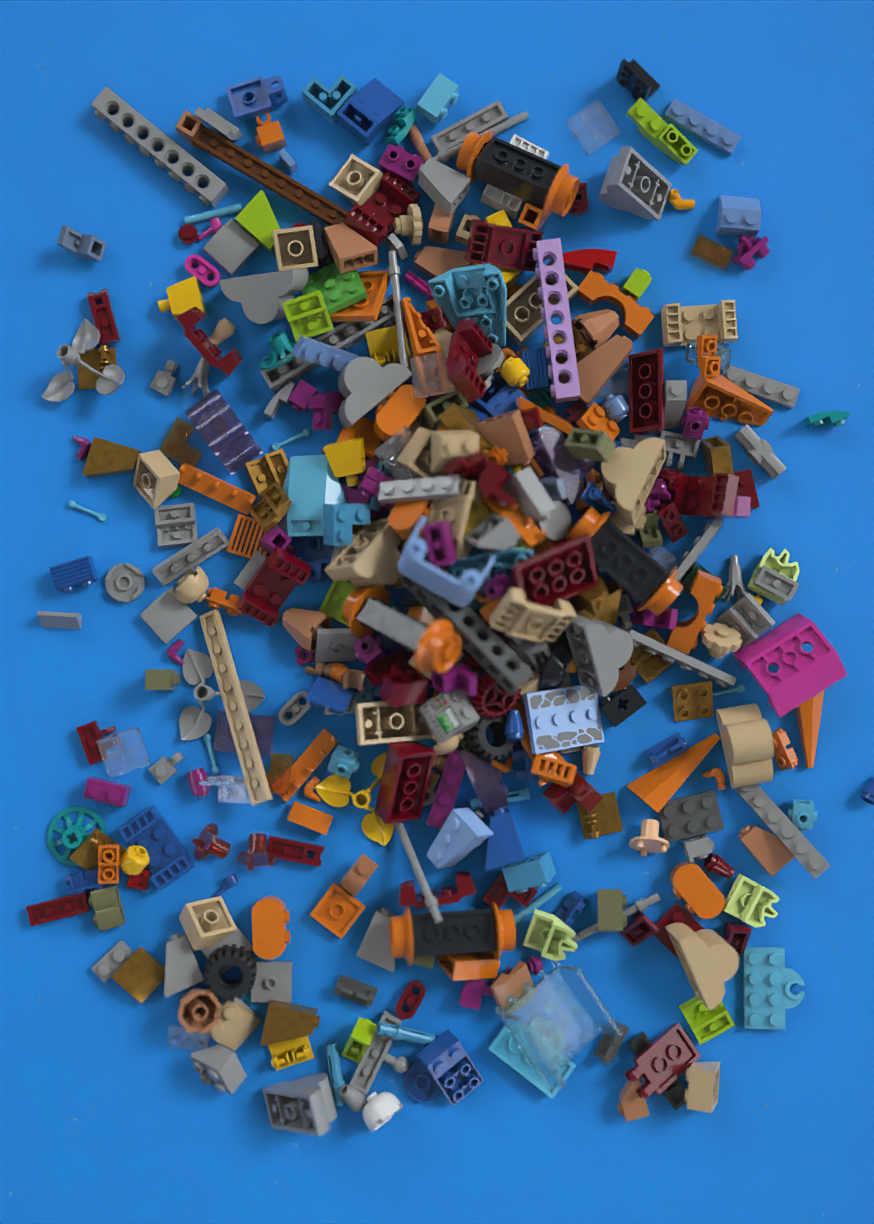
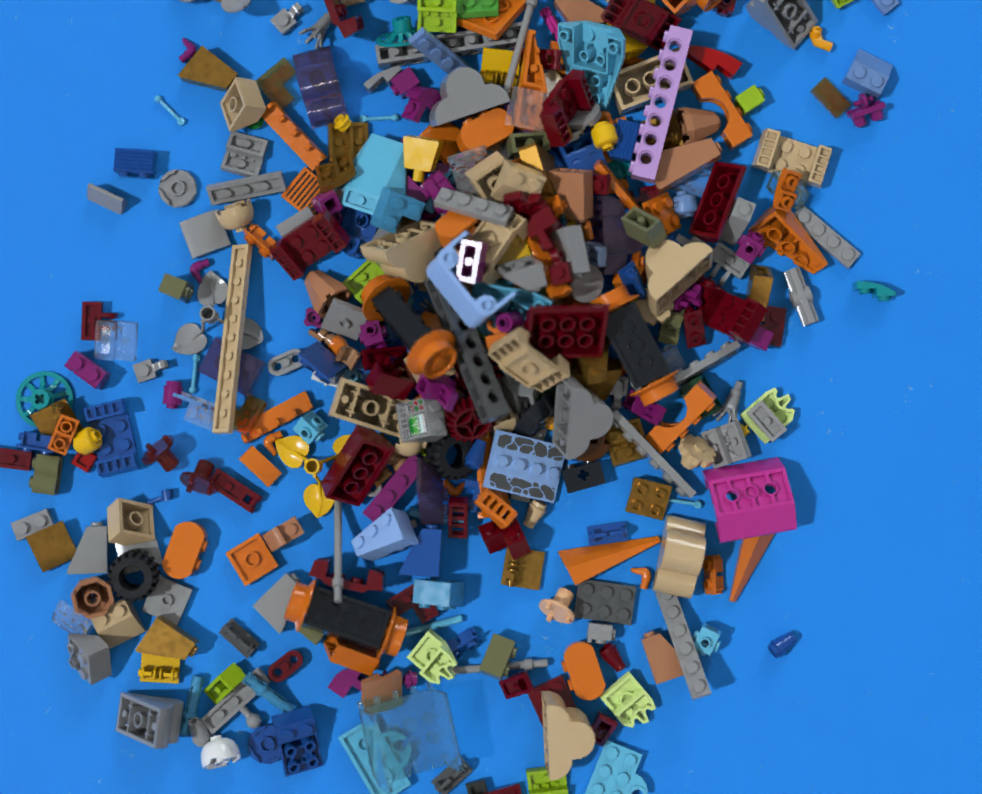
camera: 25 degrees right, 0 degrees up
(258, 457) = (342, 122): none -> yellow plate
(514, 780) = (458, 505): none -> dark red slope
(529, 518) = (560, 271): none -> dark red plate

